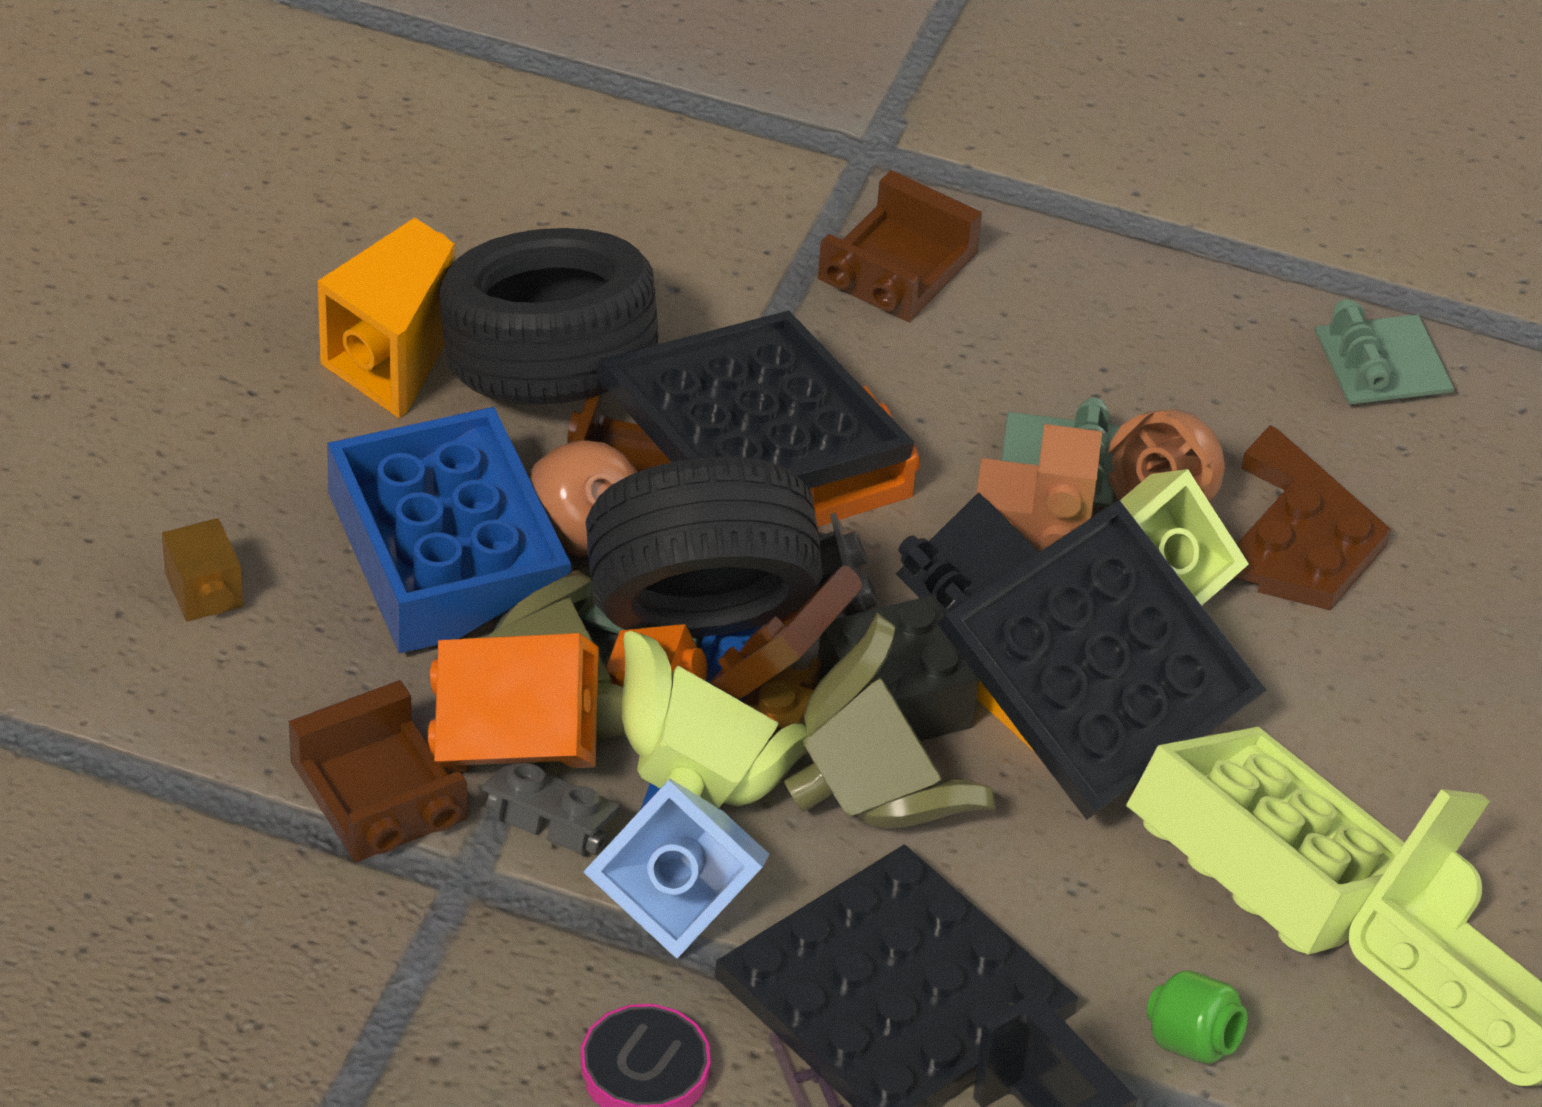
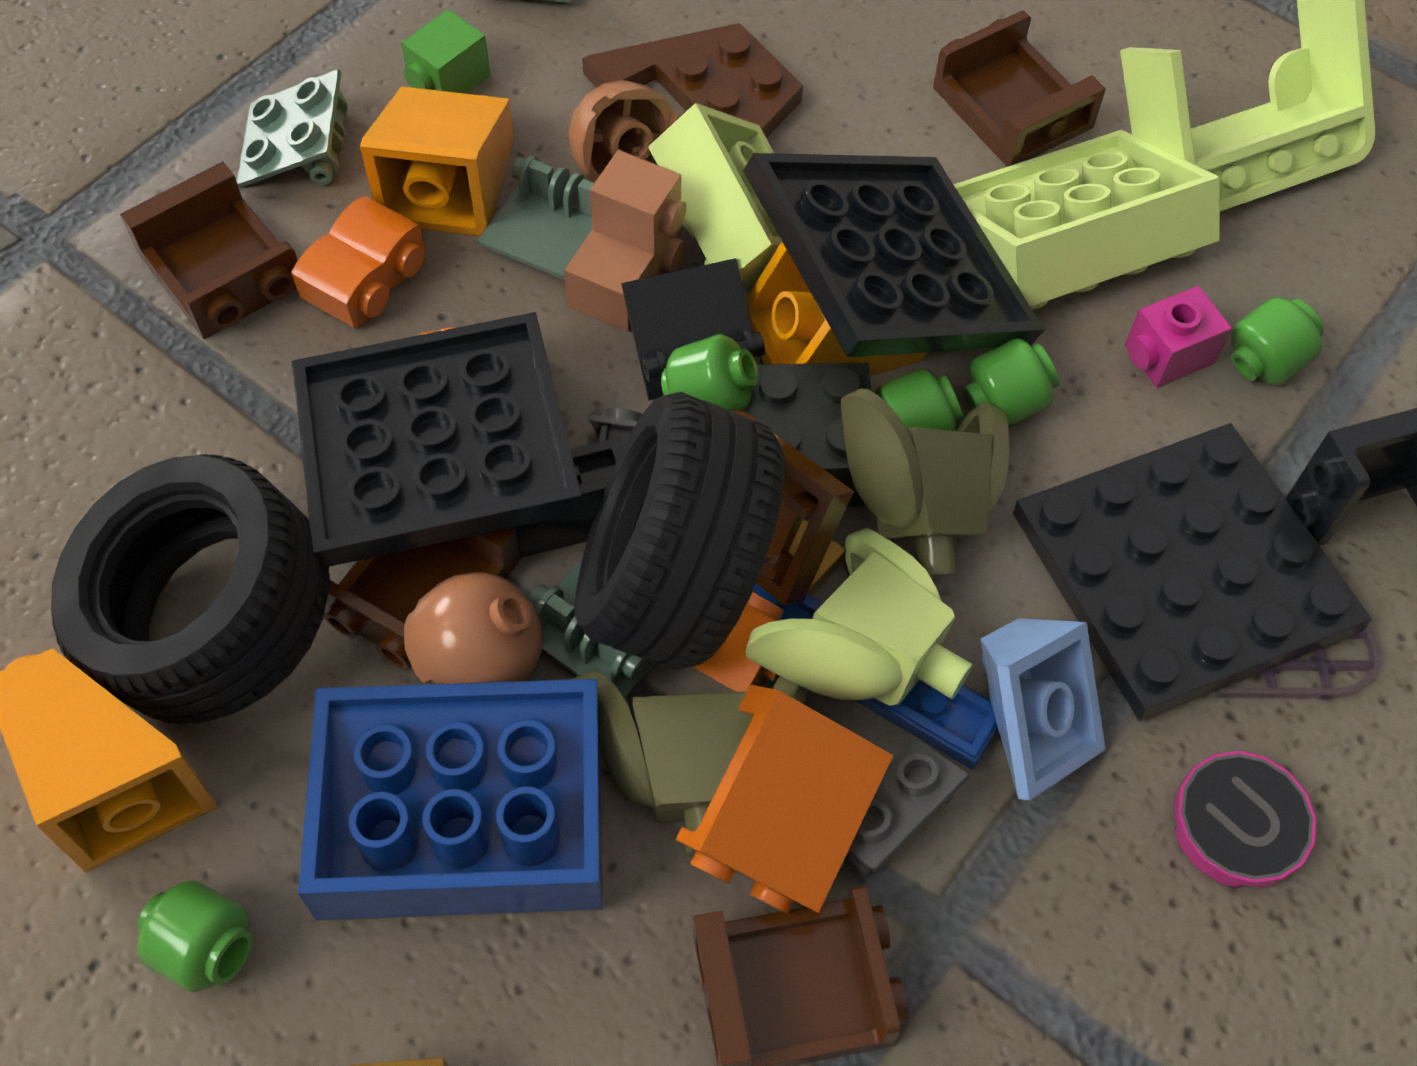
camera: 70 degrees left, 15 degrees up
(286, 421) = (194, 936): none -> bright green head
(899, 568) = (712, 372): none -> bright green head
(936, 338) = (359, 262): none -> orange brick
(965, 744) = (922, 400): none -> bright green head
(1034, 813) = (1014, 379): none -> bright green head
(1065, 262) = (295, 130): none -> sand green hinge
(1076, 345) = (440, 158): none -> light orange slope
(1159, 933) = (1177, 336): none -> dark pink brick
(1204, 328) = (446, 55): none -> bright green brick
(1428, 747) = (1013, 92): none -> reddish brown panel

